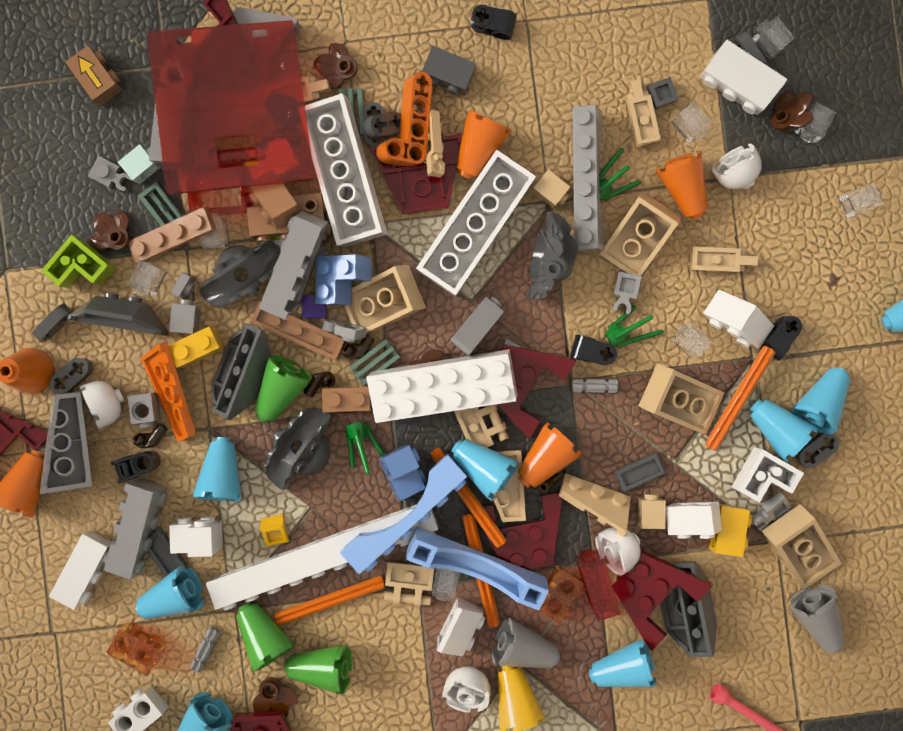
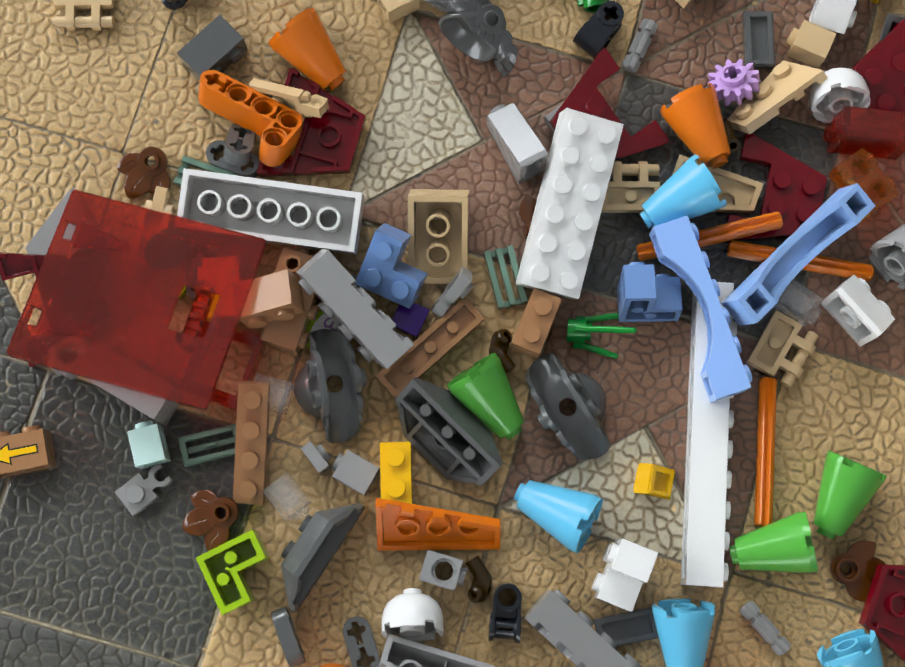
camera: 70 degrees left, 10 degrees down
(354, 351) = (483, 288): dark brown arm -> none
(476, 223) = (400, 93): white brick -> none
(595, 467) = (735, 81): none -> lavender gear

